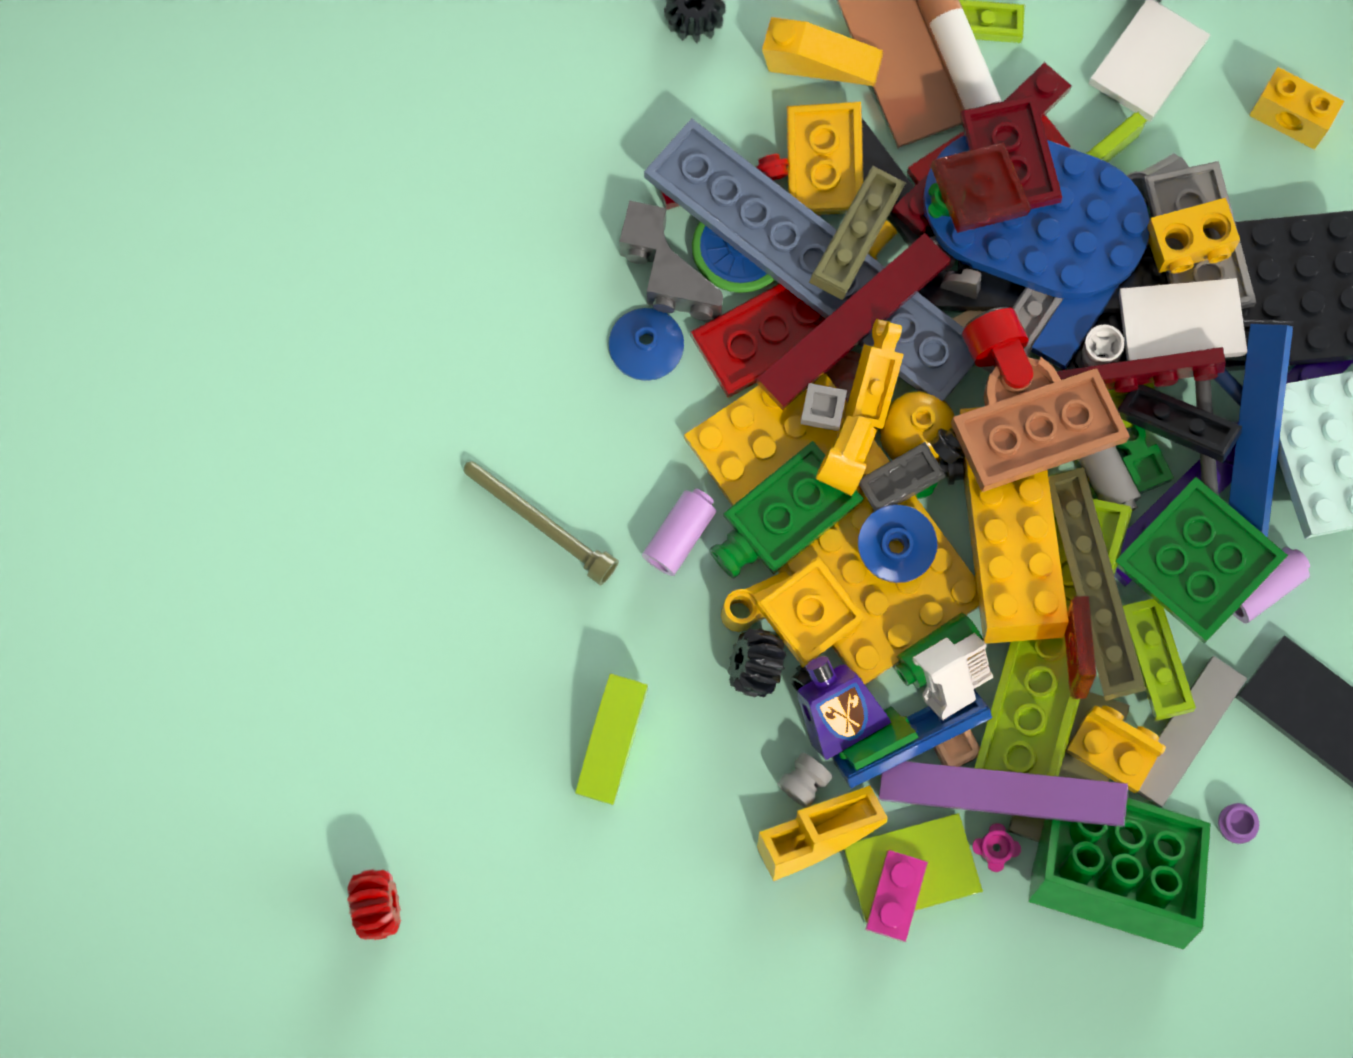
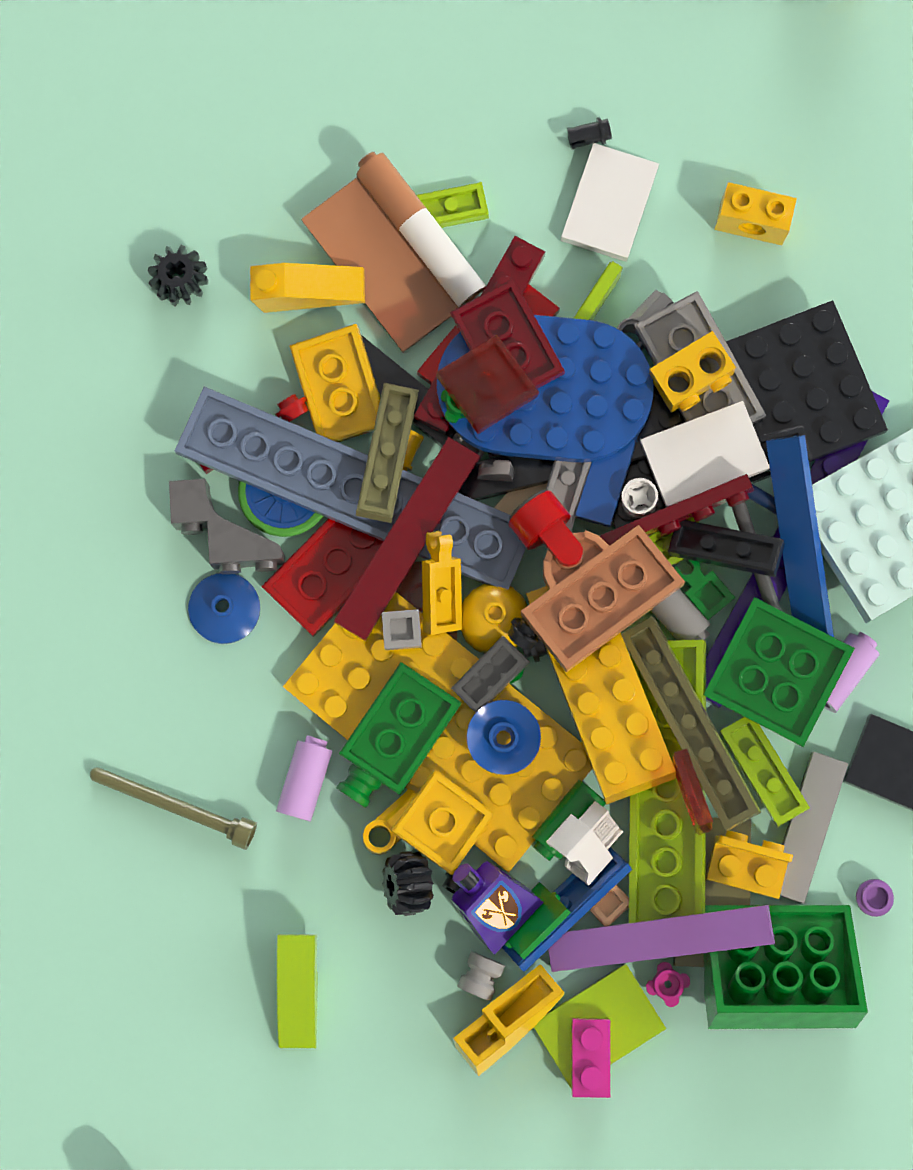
camera: 15 degrees left, 5 degrees up
(845, 460) = (435, 678): yellow piece -> none

